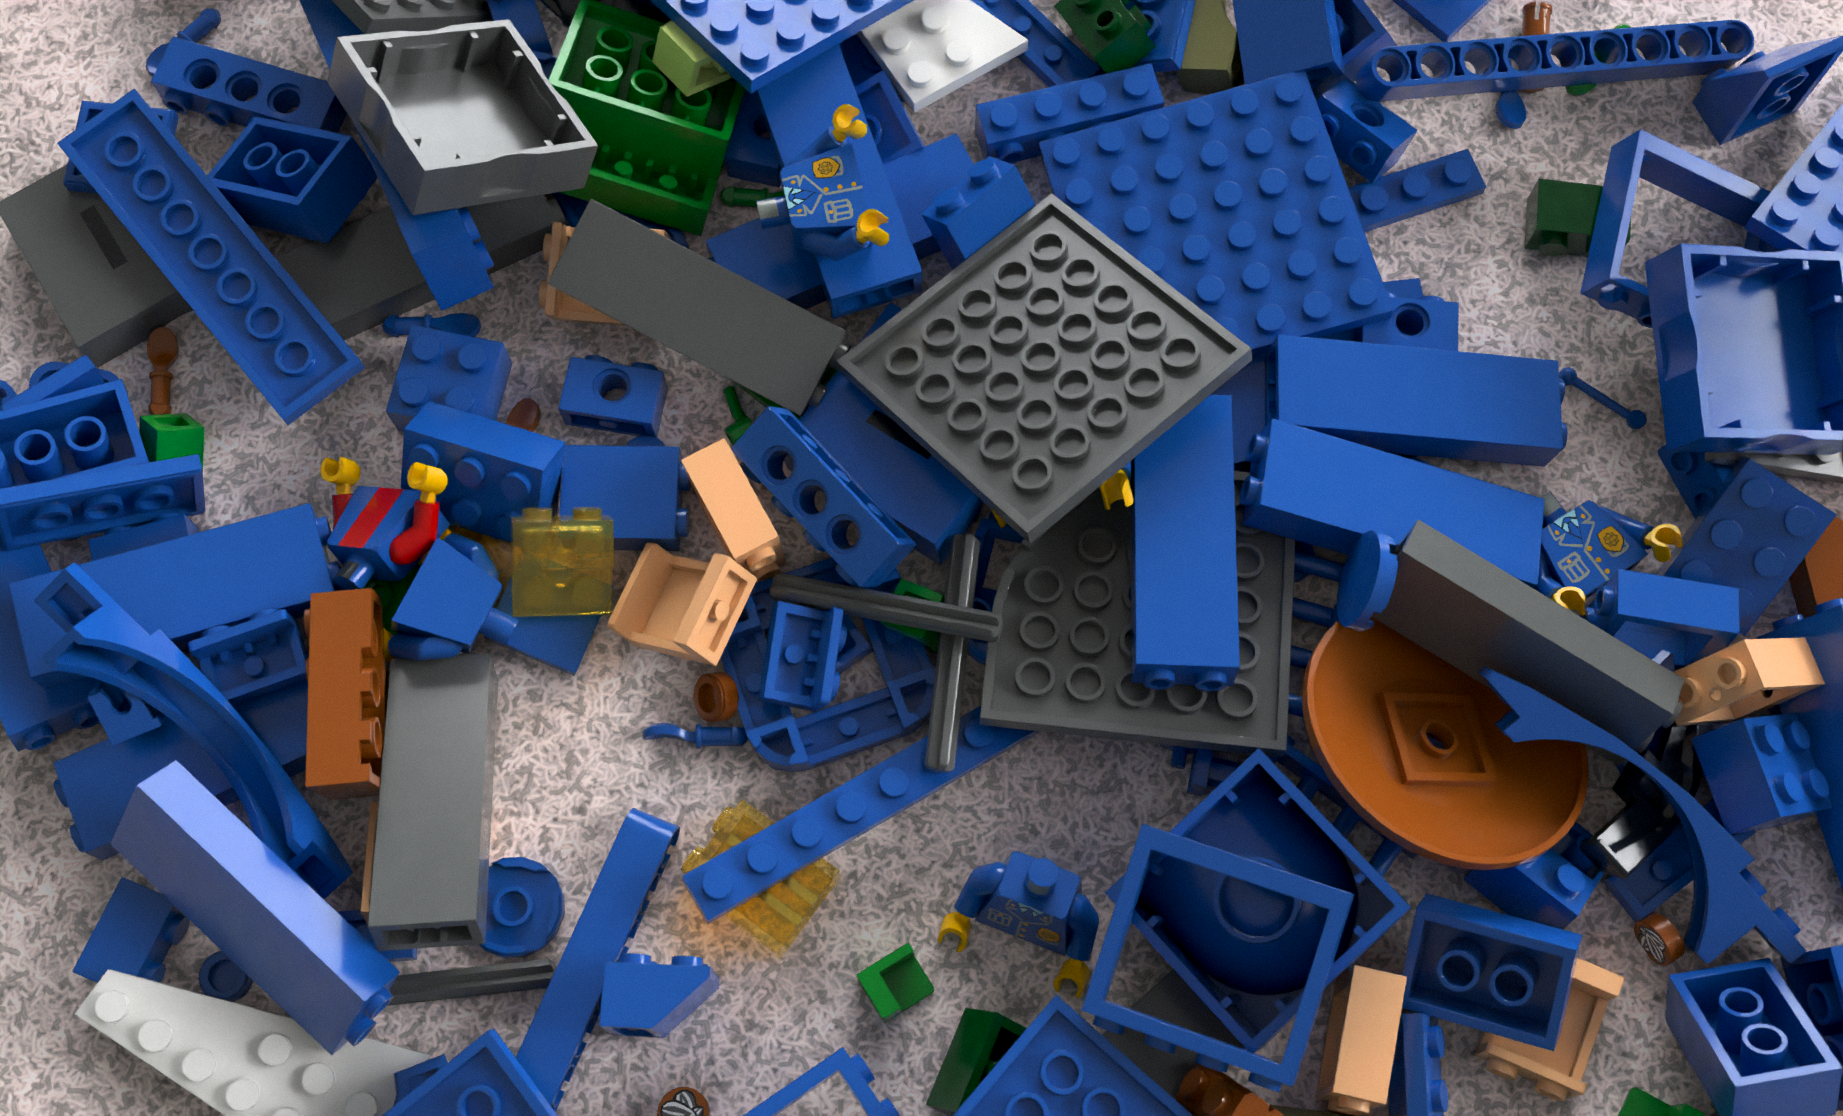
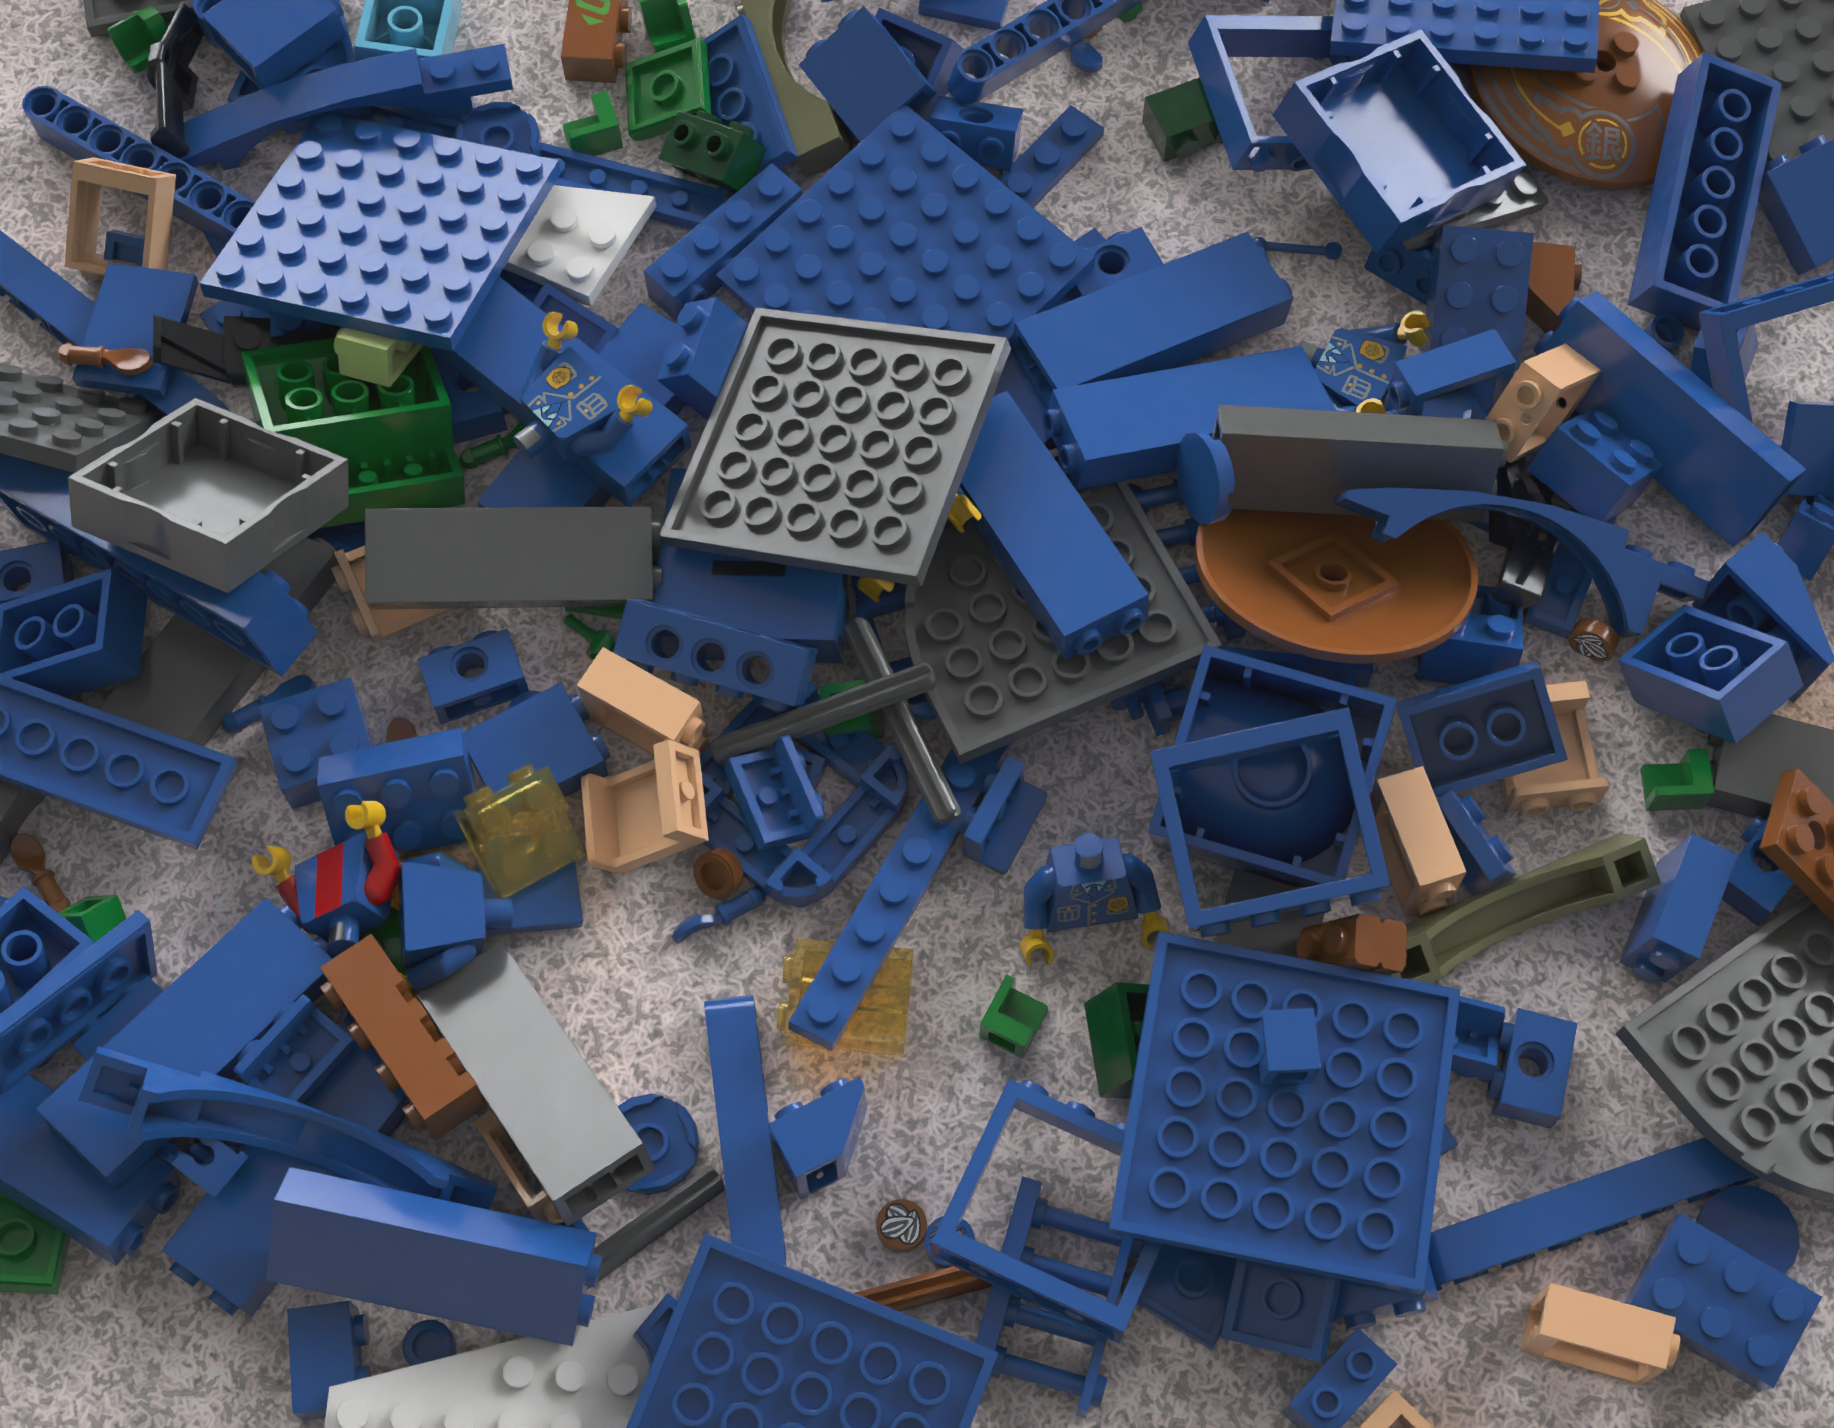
camera: 30 degrees left, 5 degrees down
(996, 792) = (1003, 819): none -> blue bracket

